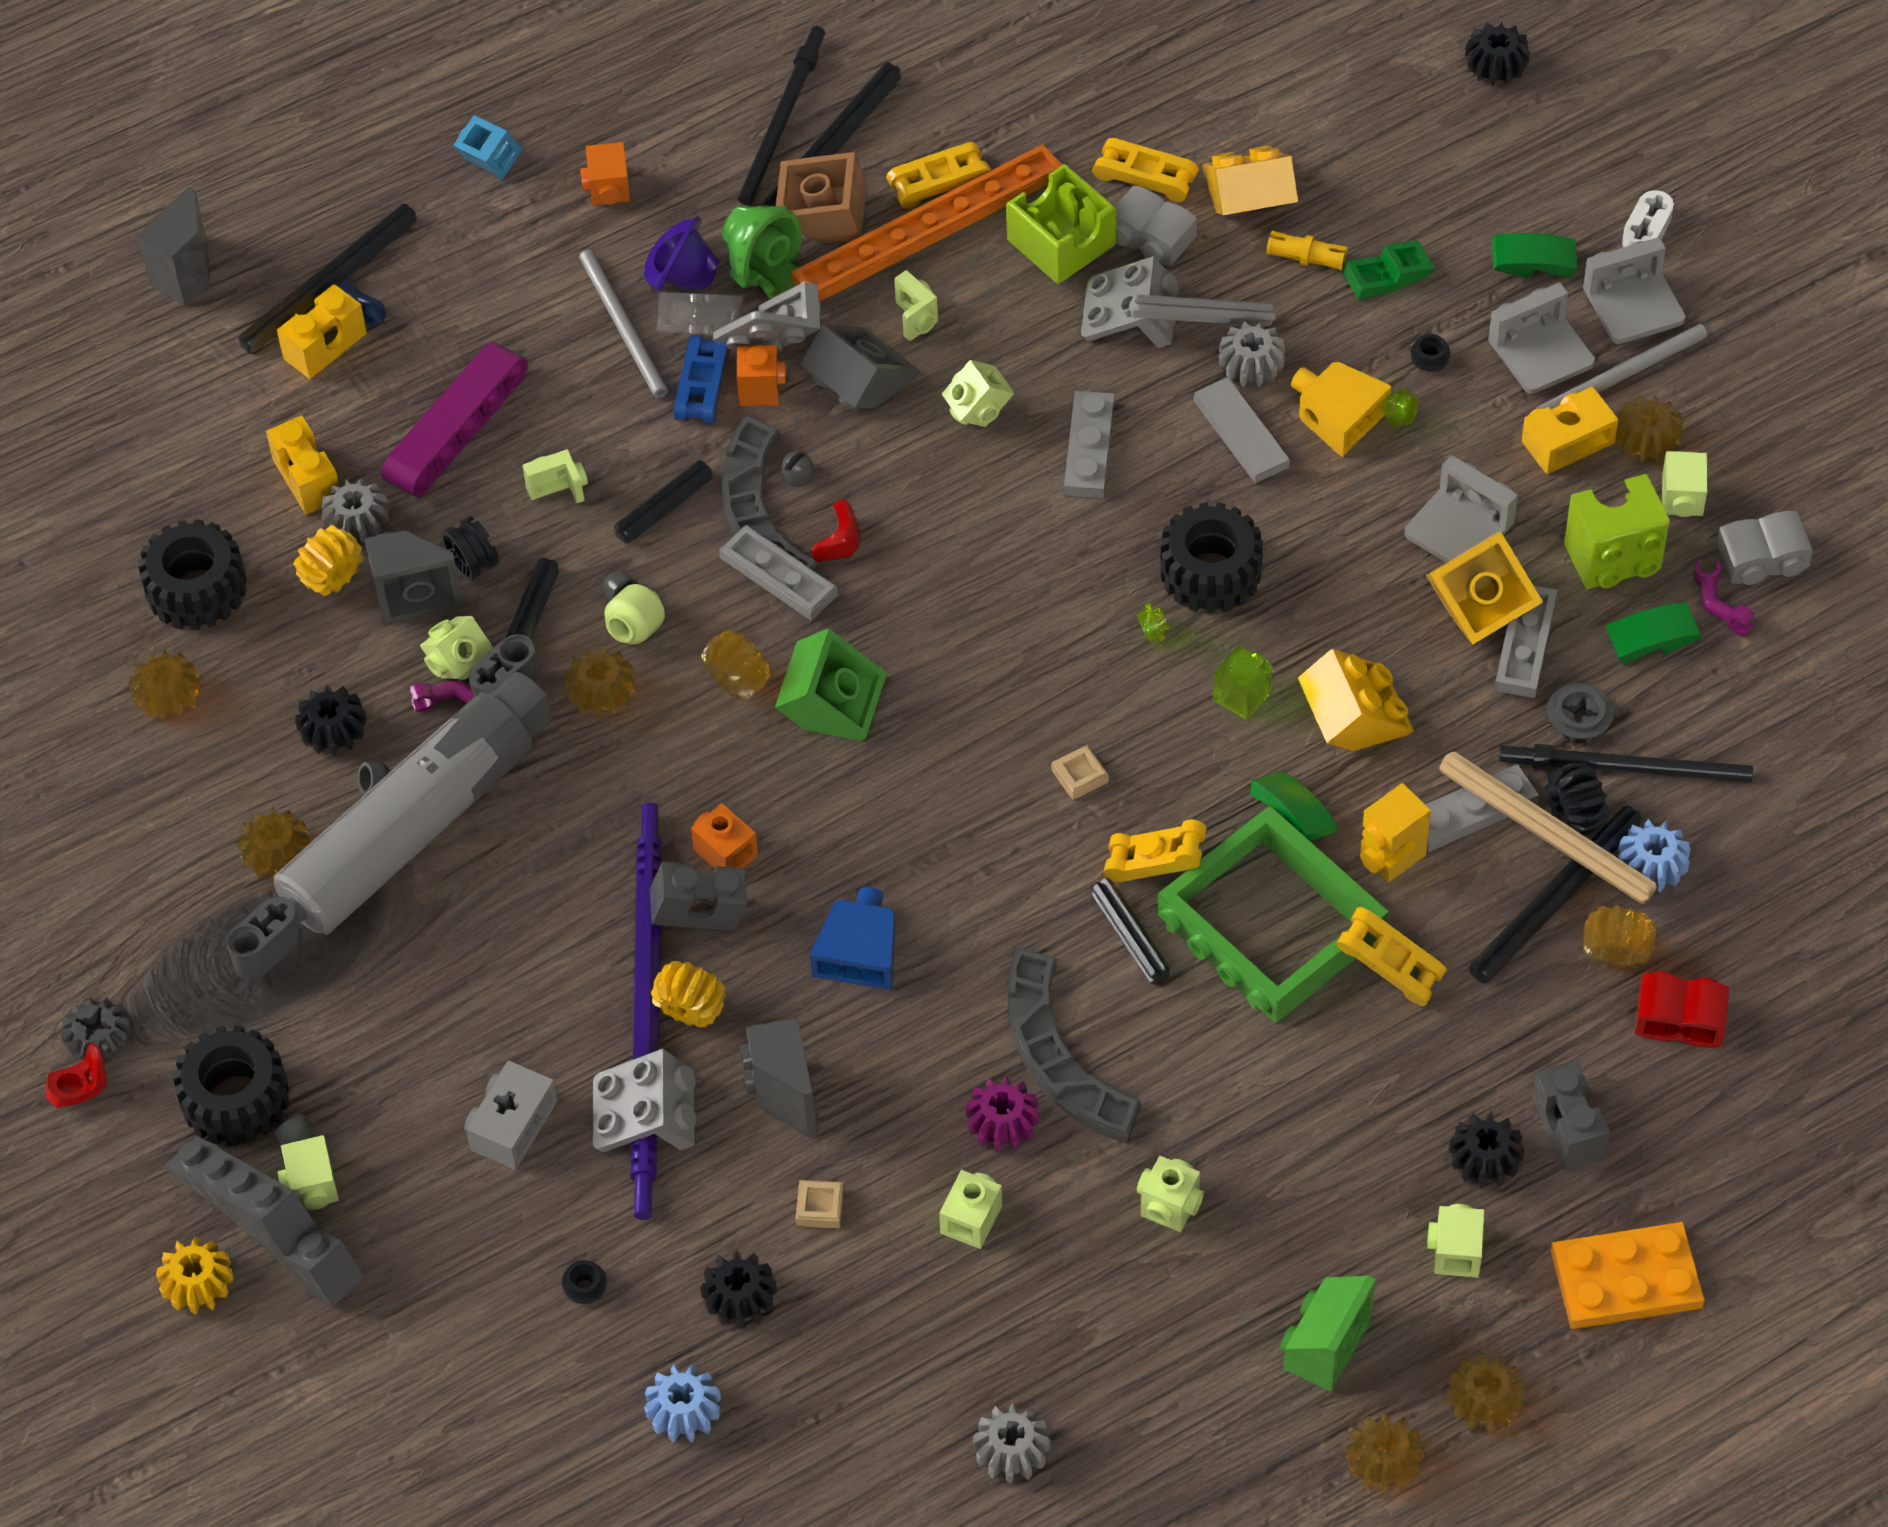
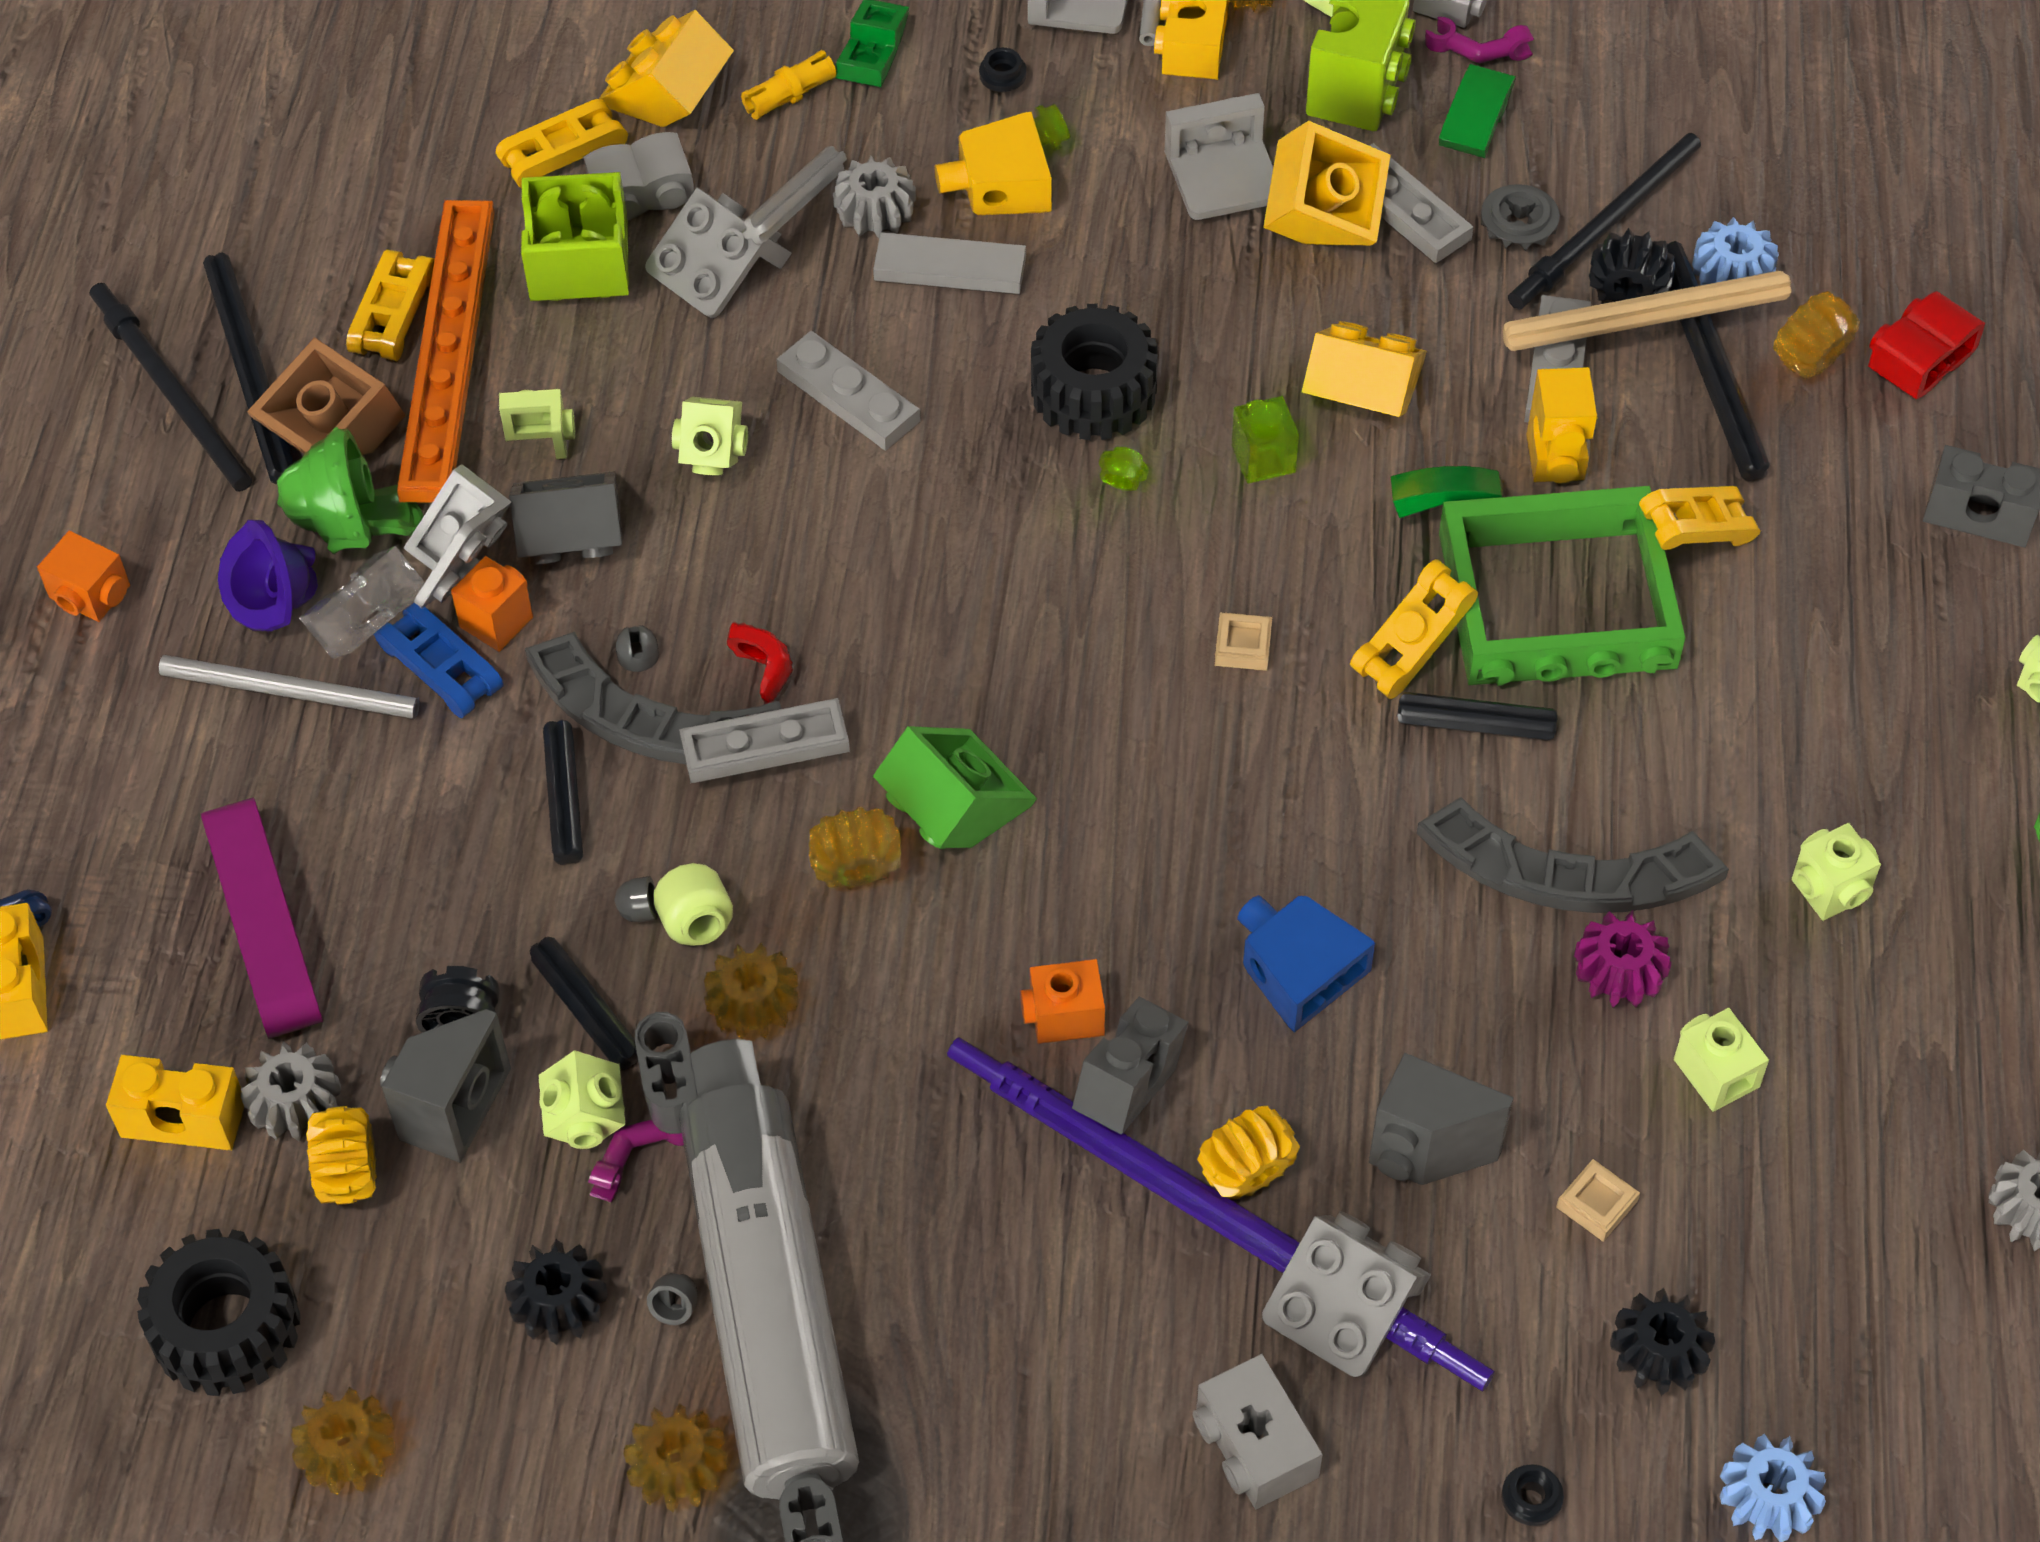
camera: 55 degrees left, 0 degrees up
(554, 474) = (433, 859): yellowish green bracket -> none
(1470, 1154) = (1973, 585): black gear -> none

